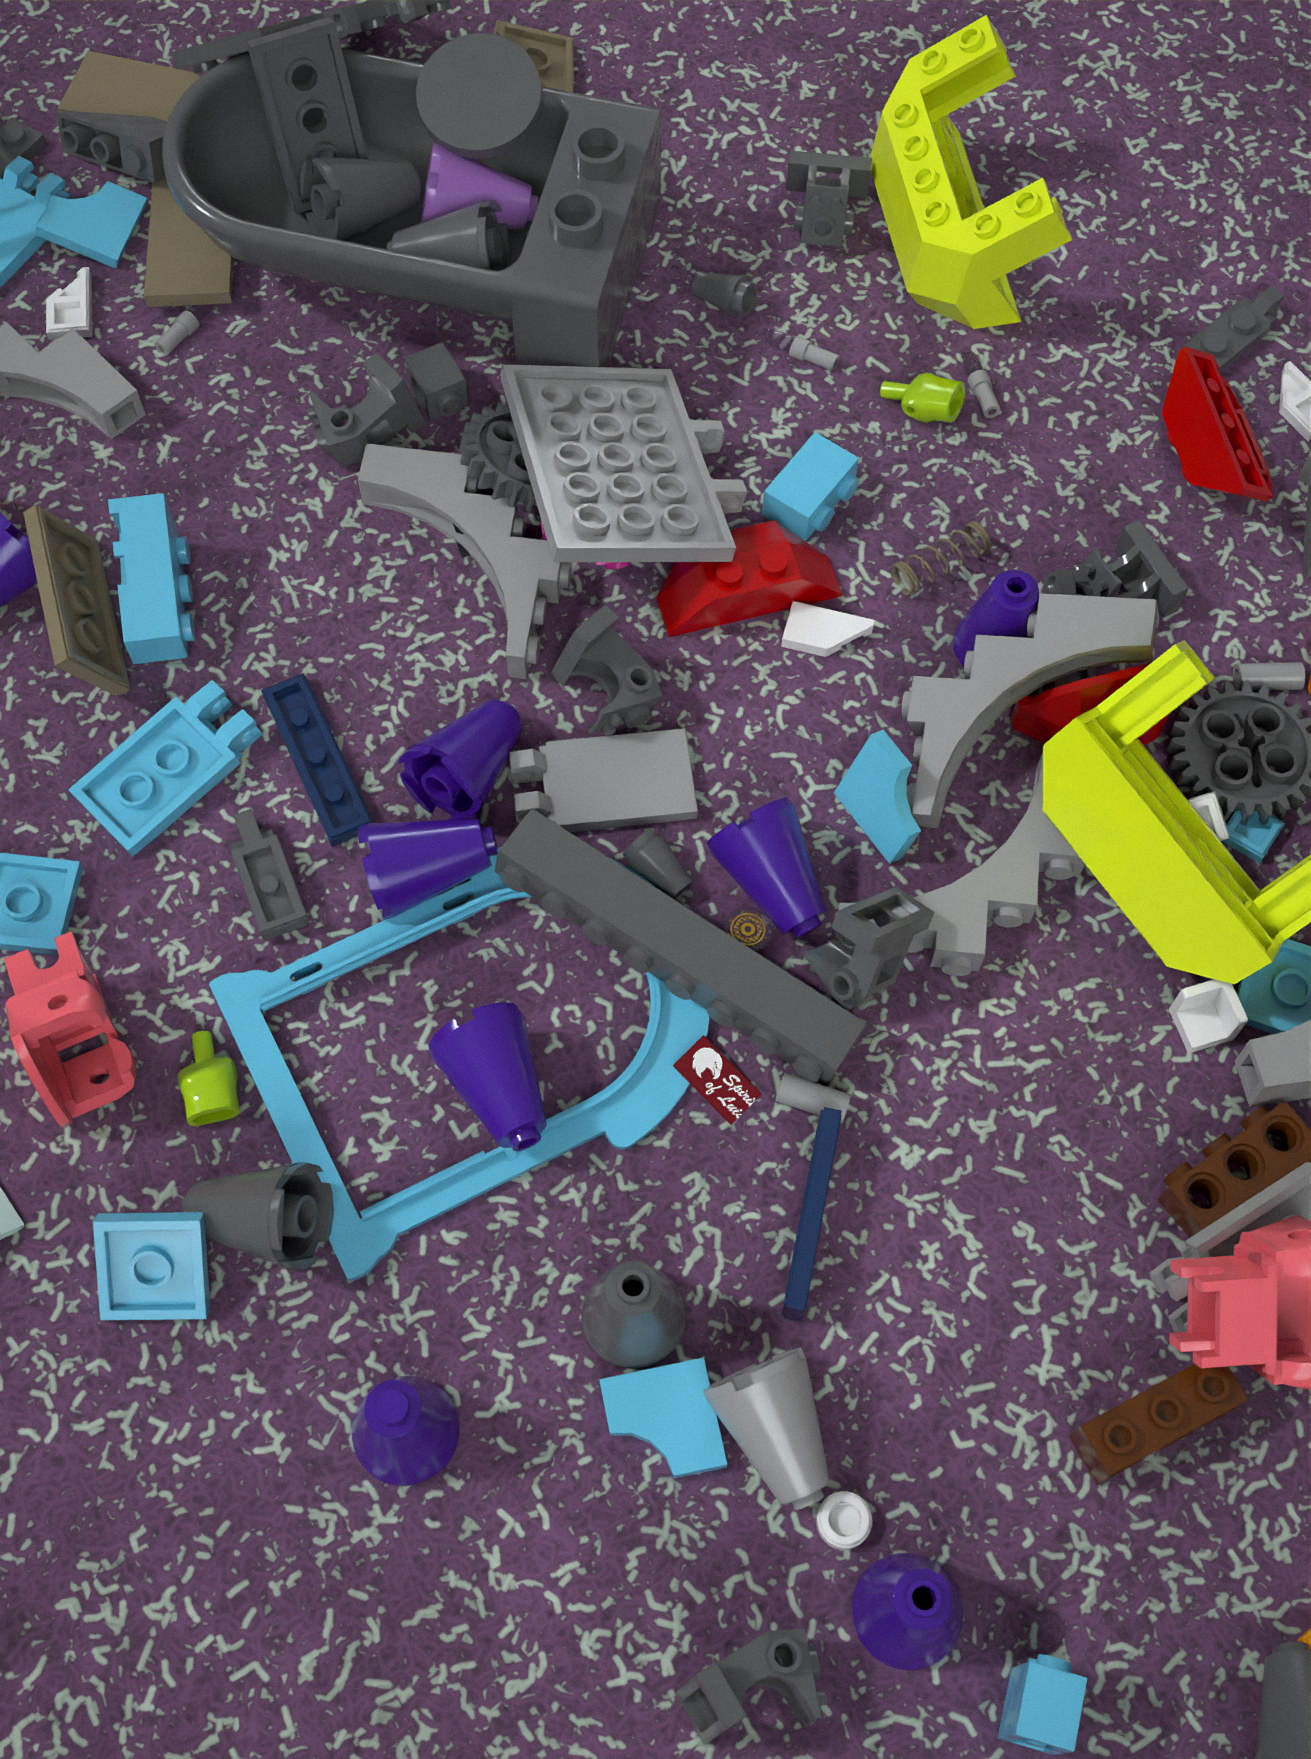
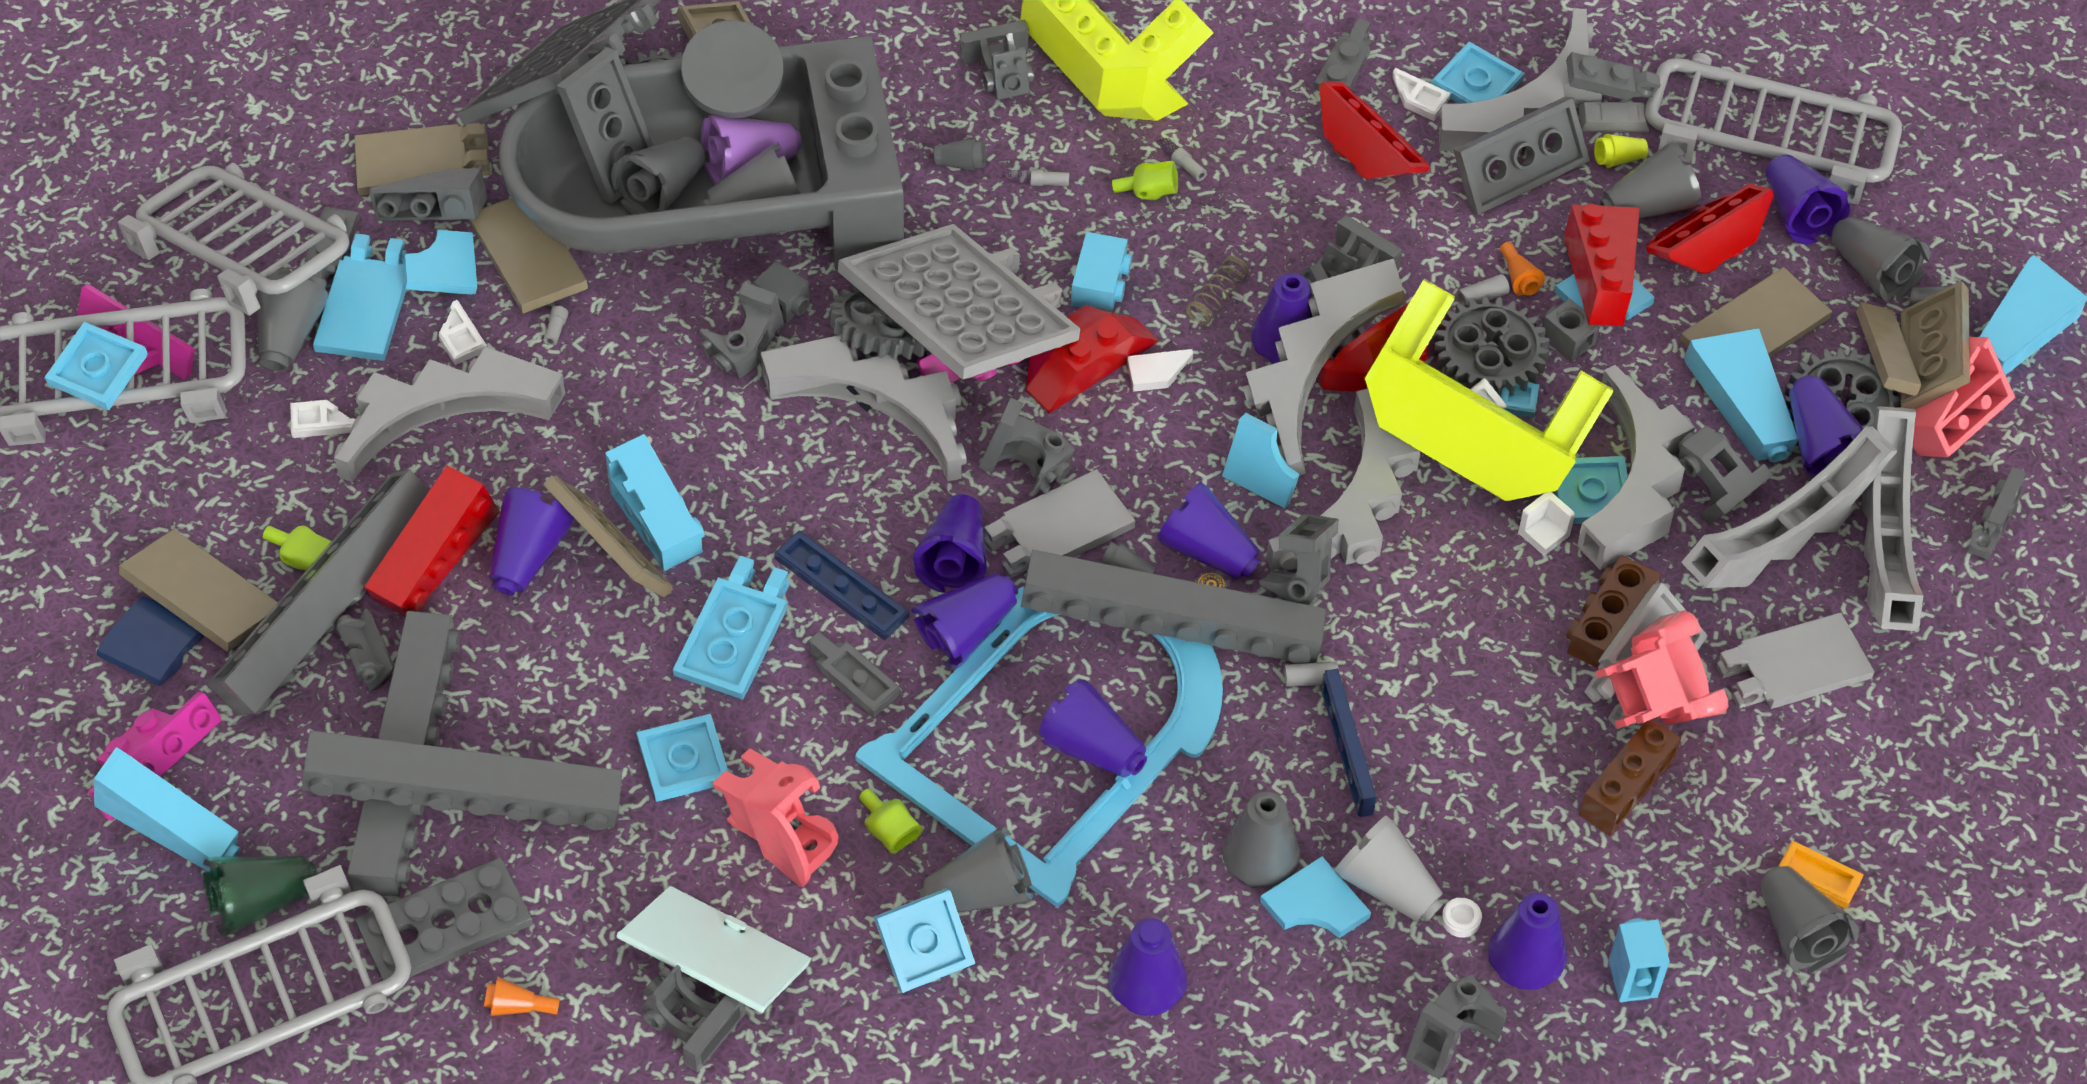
camera: 25 degrees left, 10 degrees down
(717, 1080) = (1240, 687): dark red sticker -> none

